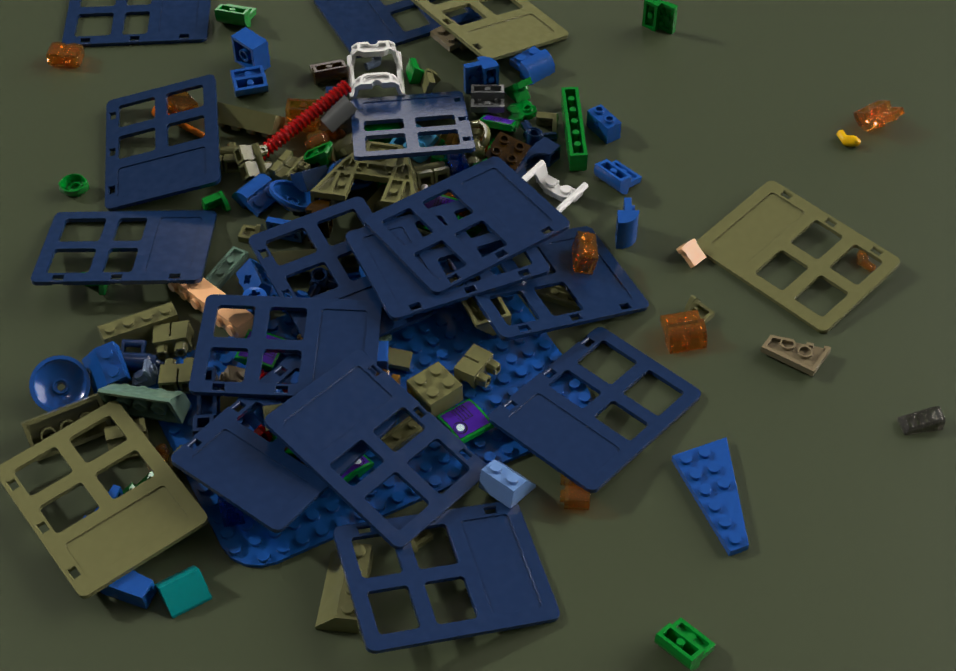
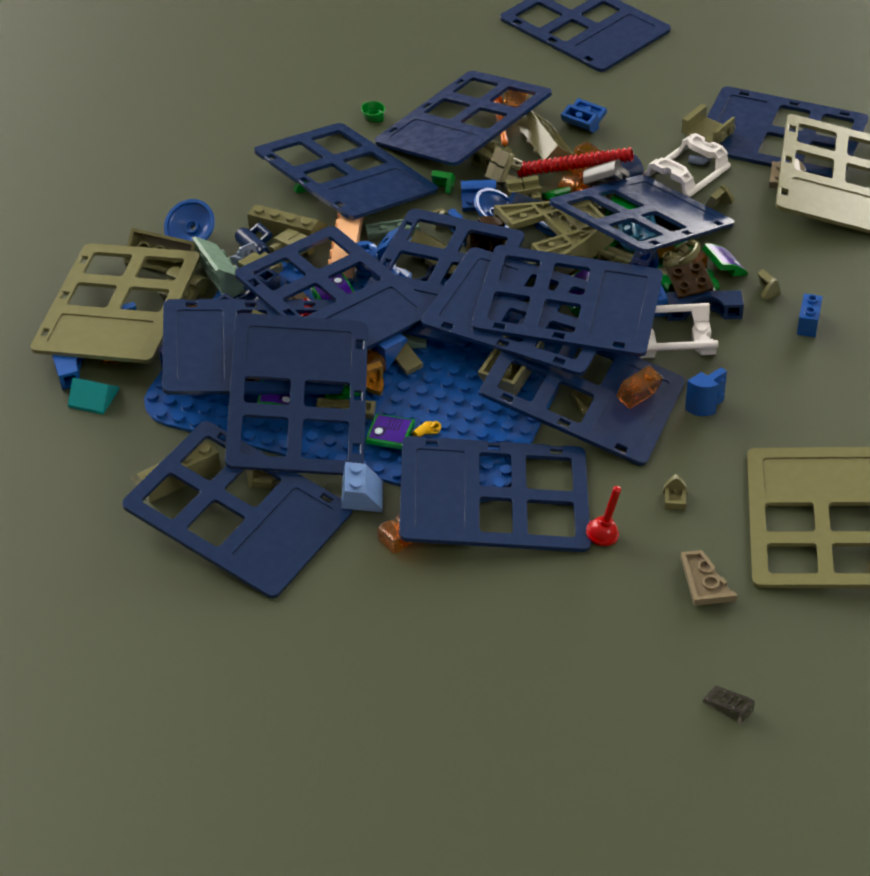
camera: 50 degrees right, 5 degrees down
(65, 54) = (488, 23): clear orange brick -> none
(106, 366) = (230, 231): blue slope -> none
(234, 14) = (643, 63): green brick -> none
(250, 49) = (613, 93): blue brick -> none
(329, 71) = (651, 143): dark brown brick -> none
(347, 36) = (710, 129): none -> olive panel
(413, 71) = (716, 182): green tile -> none
(435, 389) = (398, 395): olive brick -> none
(475, 366) = (448, 404): olive hips -> none
(482, 71) = (758, 216): blue brick -> none
(485, 397) = (427, 428): none -> yellow arm
(487, 98) = (743, 237): dark grey brick -> none
(519, 90) = (780, 249): green slope -> none
(521, 110) = (761, 262): green plate -> none
(533, 64) = (821, 237): blue brick -> none
(534, 134) = (740, 283): dark blue axle -> none
(574, 129) = (776, 301): green brick -> none
(616, 175) = (760, 357): blue brick -> none
(684, 331) = (640, 497): clear orange brick -> none
(684, 643) = (318, 678): green brick -> none
(691, 253) = (733, 451): light nougat tile -> none
(695, 371) = (603, 529): none -> red piece
(713, 485) = (498, 611): blue wing -> none

